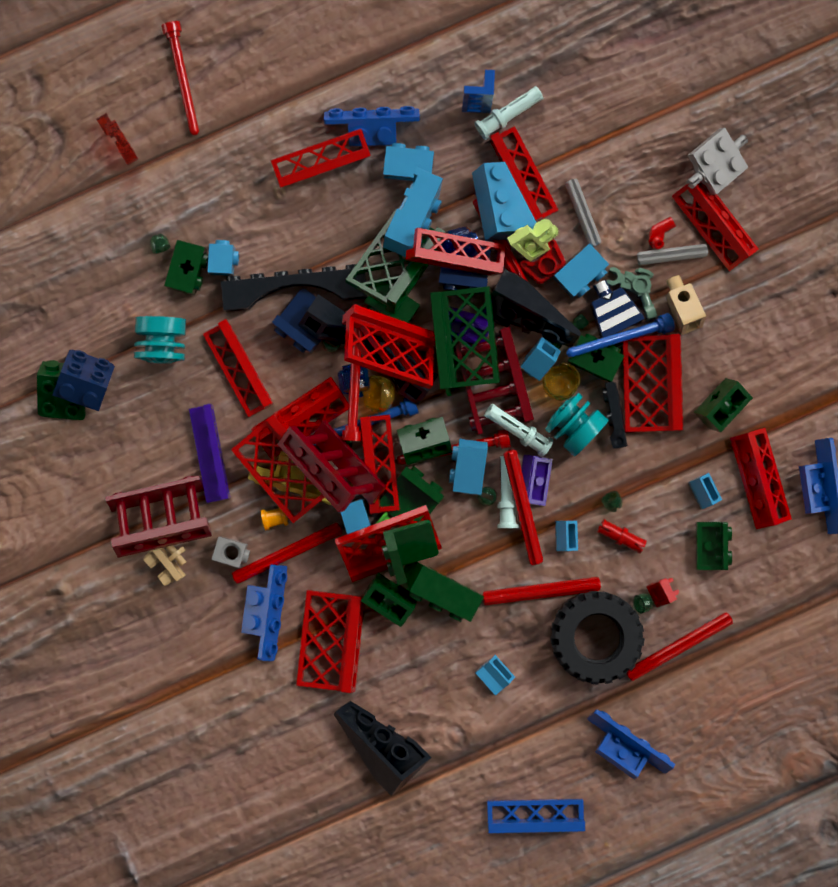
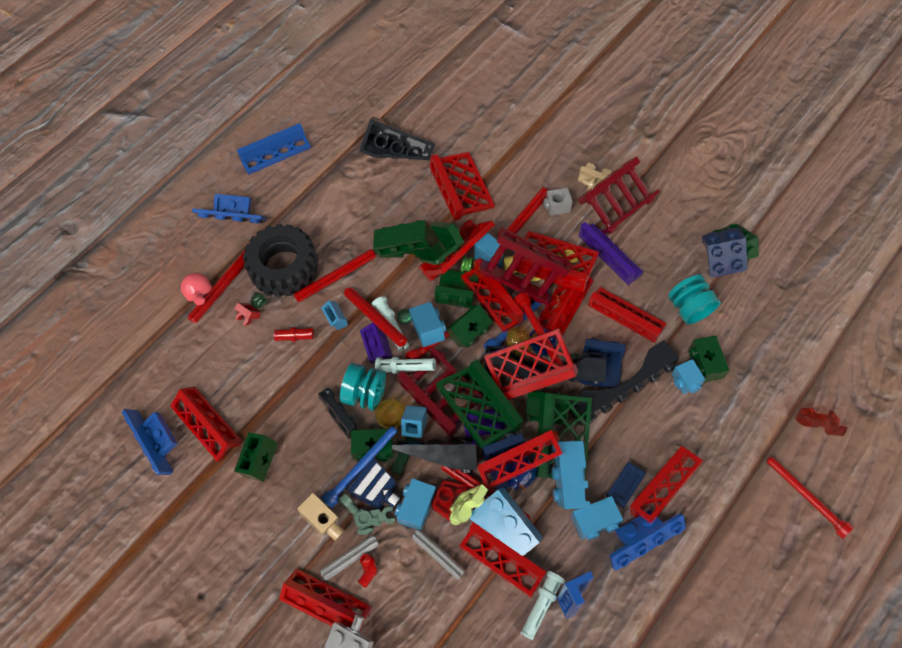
camera: 155 degrees right, 25 degrees down
(159, 243) = (737, 366): clear green hinge -> none
(264, 611) = (514, 180): blue bracket -> none
(273, 518) = (546, 230): light orange bush -> none
(358, 182) = (626, 484): none -> dark blue plate
(389, 599) = (436, 213): dark green brick -> none
(495, 675) = (341, 212): dark azure piece -> none
(612, 501) = (316, 354): clear green hinge -> none
(674, 383) = (301, 454): red fence -> none
(705, 491) = (239, 384): dark azure piece -> none
(709, 653) = (194, 287): none -> coral hair
(713, 546) = (223, 358): dark green bracket -> none

